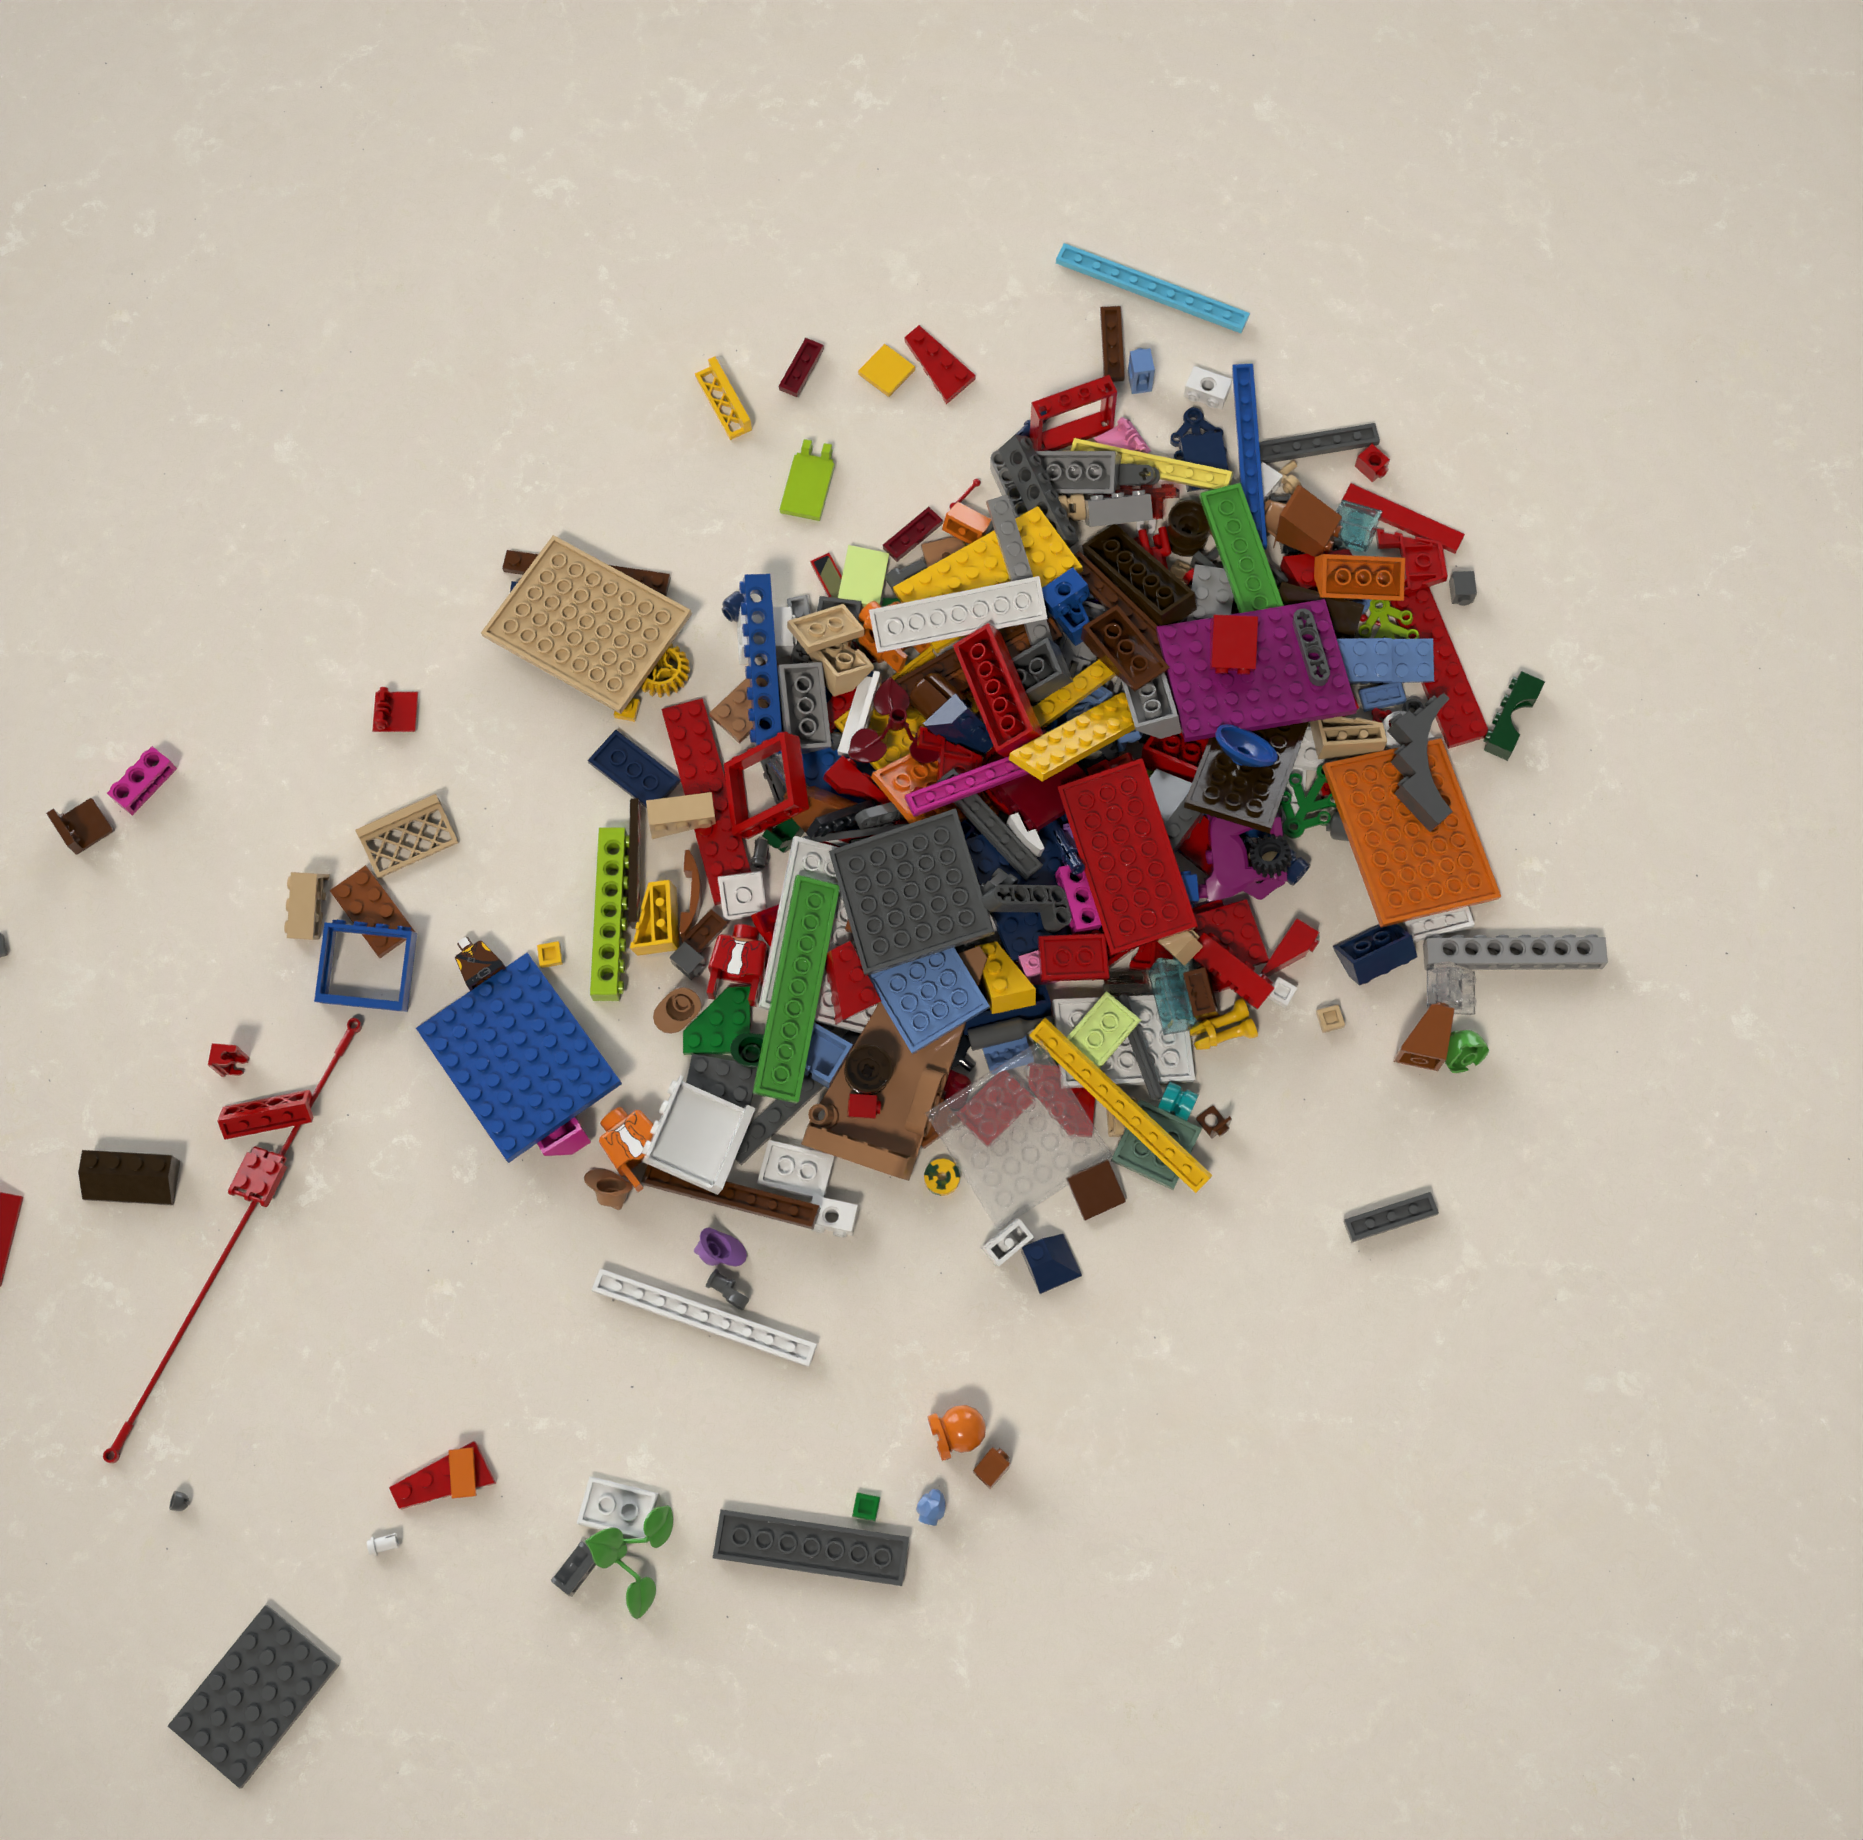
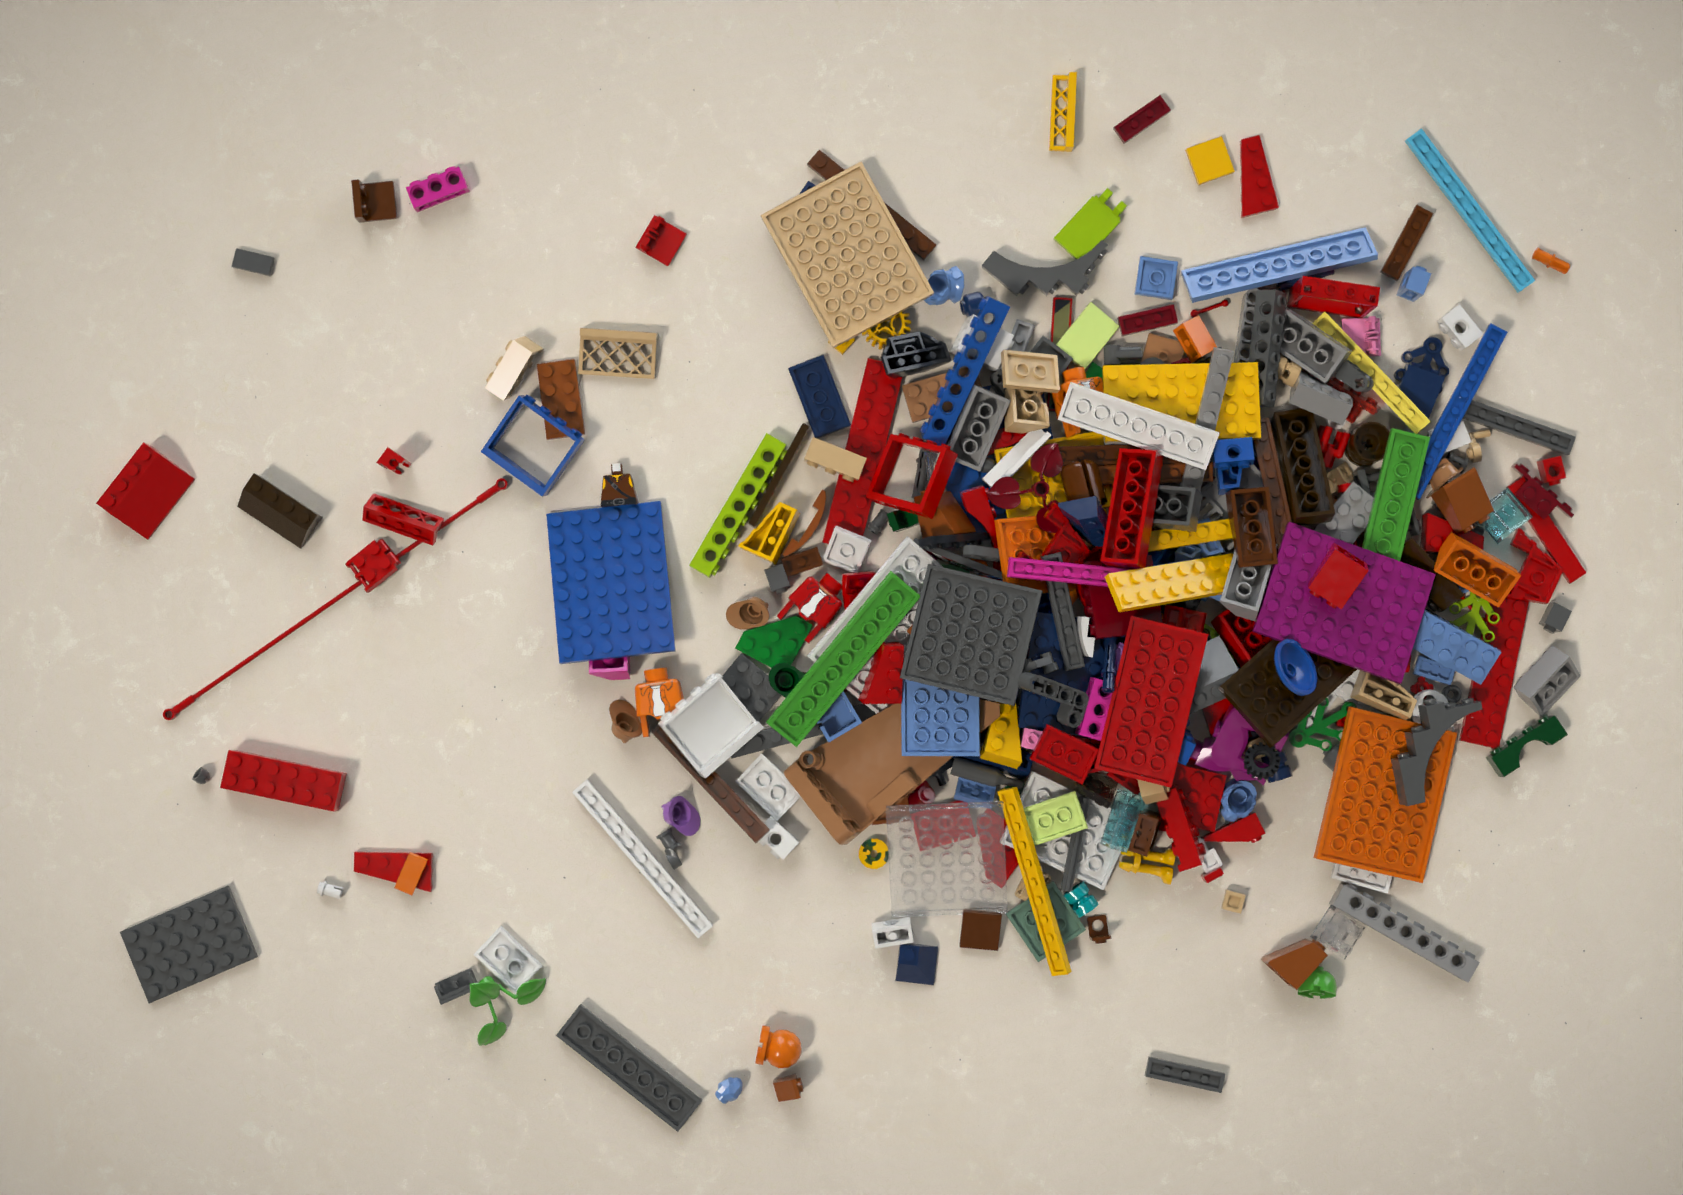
camera: 25 degrees right, 15 degrees up
(271, 1453) = (283, 780): none -> red brick
(549, 954) = (676, 512): yellow plate -> none
(702, 601) = (946, 286): none -> medium blue piece
(705, 679) = (913, 354): none -> black wedge
(792, 548) = (1045, 279): none -> dark grey arch
(863, 1106) = (844, 771): red brick -> none
(866, 1507) = (684, 1060): green tile -> none
(874, 1058) = (859, 760): dark brown wheel -> none
(898, 494) = (1156, 278): none -> medium blue plate
(1003, 422) = (1279, 264): none -> medium blue plate
(1252, 291) = (1551, 261): none -> orange axle
(1272, 916) = (1238, 799): none -> medium blue piece
(1292, 1005) = (1214, 874): none -> red tile
(1311, 647) = (1394, 610): dark grey beam -> none
(1374, 491) = (1537, 497): none -> dark red bracket
(1375, 952) = (1298, 871): dark blue slope -> none
(1493, 647) = (1547, 680): none -> light grey slope

